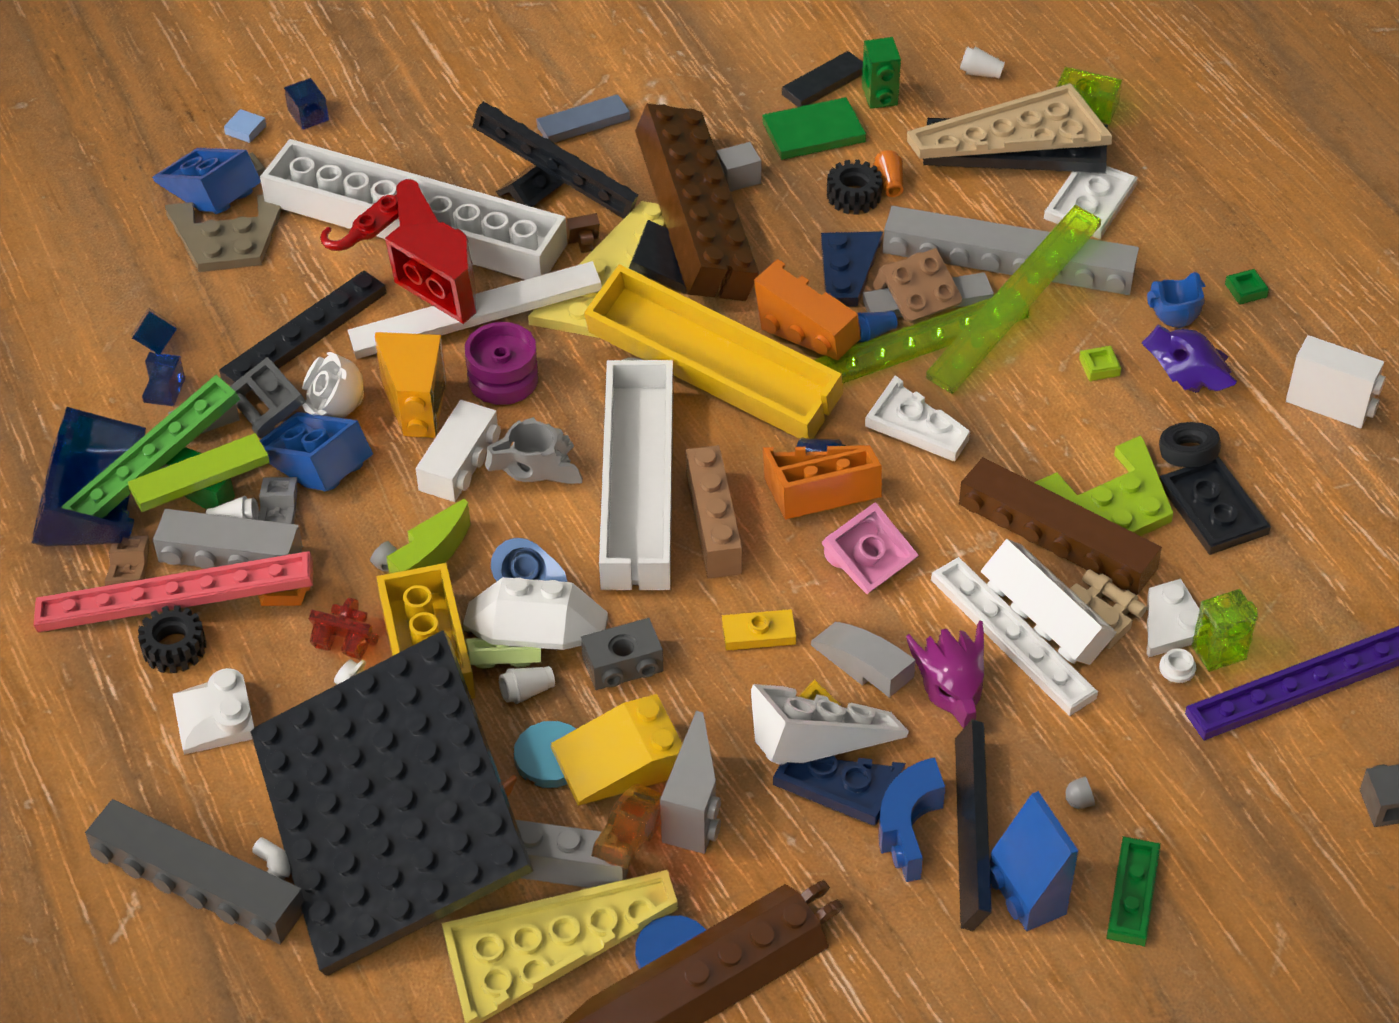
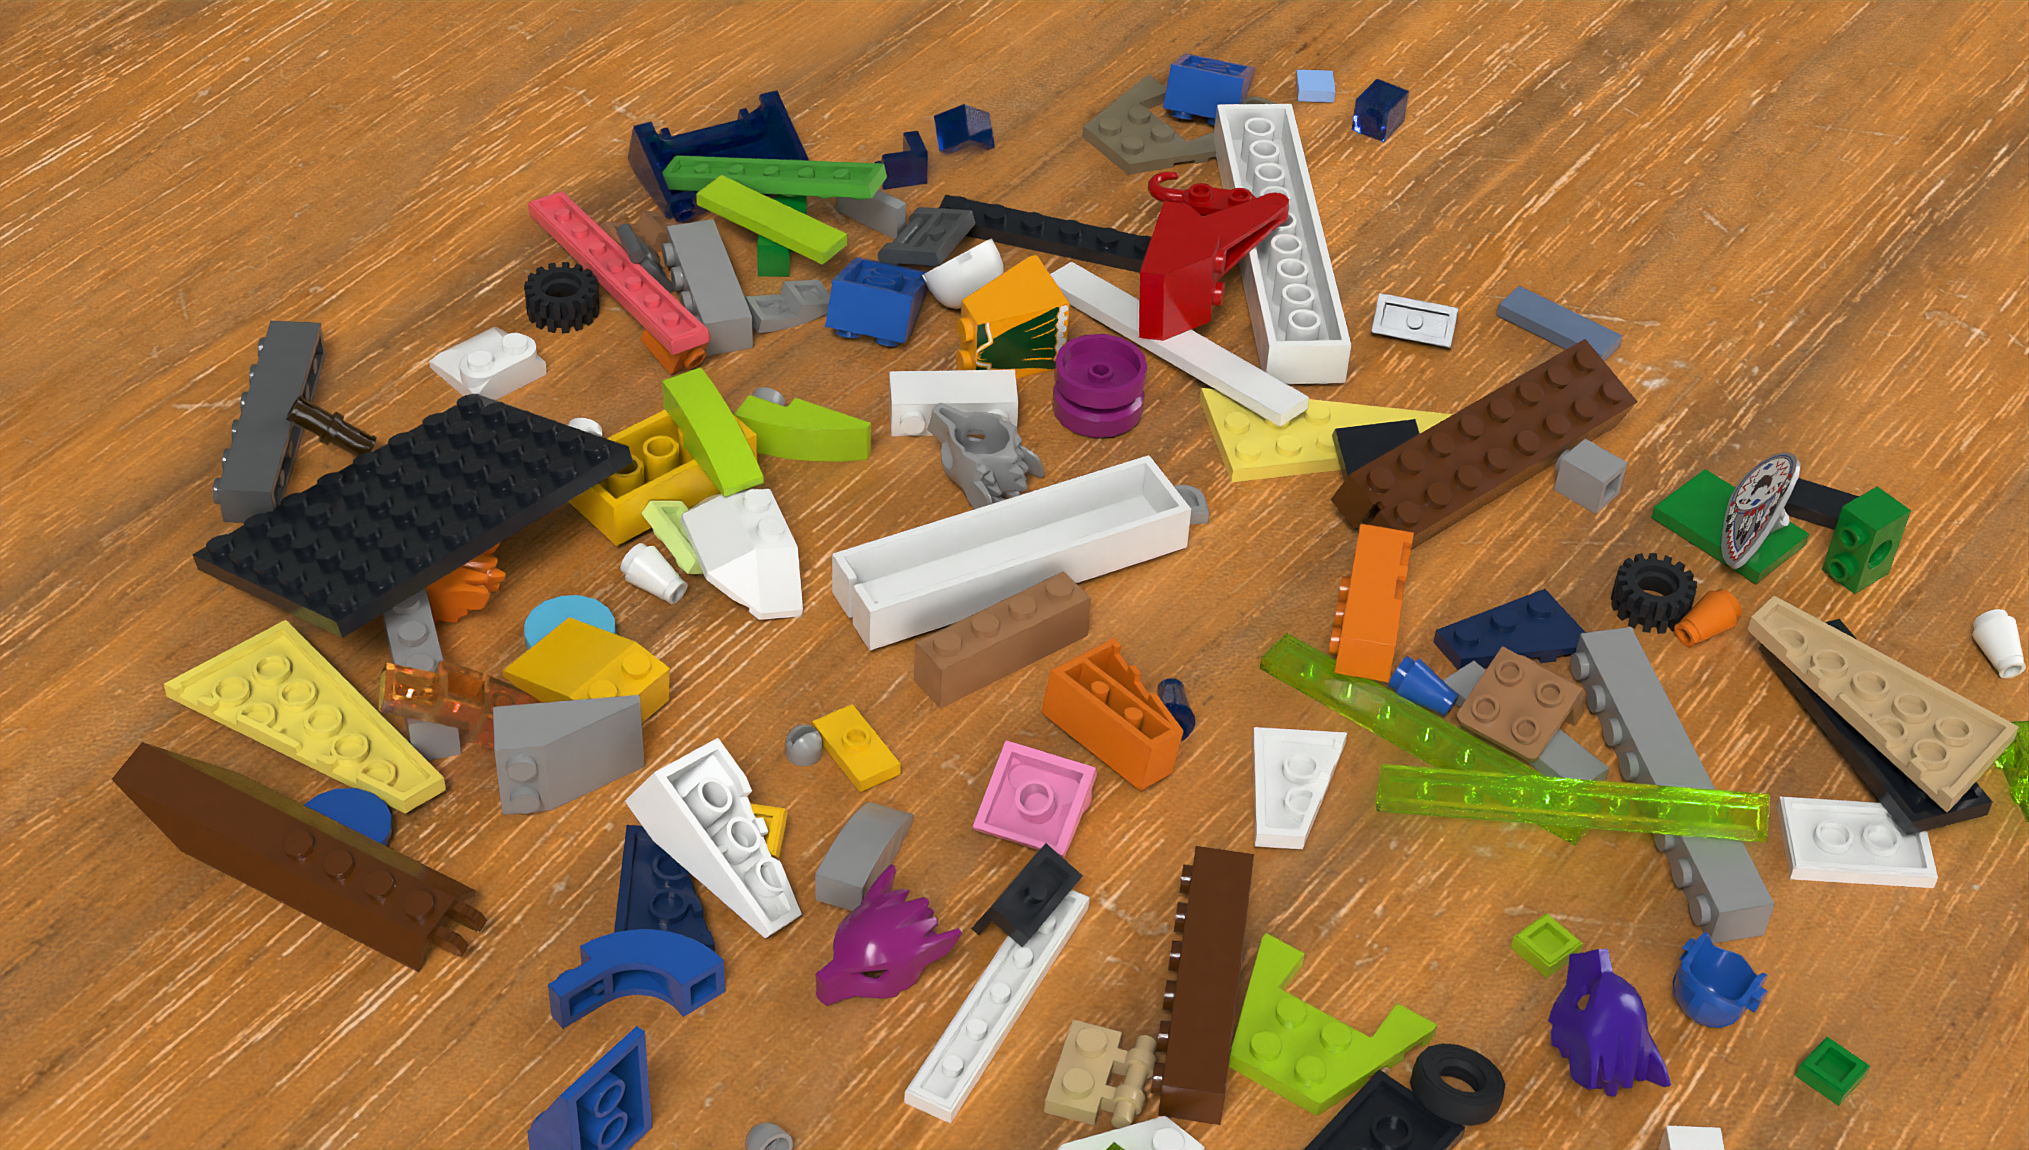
camera: 60 degrees right, 5 degrees down
(168, 567) = (642, 253): none -> dark grey piece
(240, 508) = (755, 277): white cone -> none
(242, 830) = (330, 427): none -> dark brown pin
(274, 856) = (307, 475): white arm -> none
(356, 634) = (636, 401): clear red hips -> none
(444, 582) = (711, 432): none -> lime slope
(525, 560) = (810, 509): medium blue piece -> none
(554, 160) = (1438, 293): black plate -> none
(583, 230) = (1367, 383): reddish brown tile -> none
(622, 654) = (738, 636): dark grey brick -> none
(714, 353) = (1235, 550): yellow piece -> none
(740, 666) = (803, 745): none -> light grey hinge
(828, 103) = (1758, 507): none -> shield
(947, 586) = (1031, 896): none -> black panel
(972, 826) = (660, 1039): black tile -> none
(1048, 603) = (1055, 1005): white brick -> none

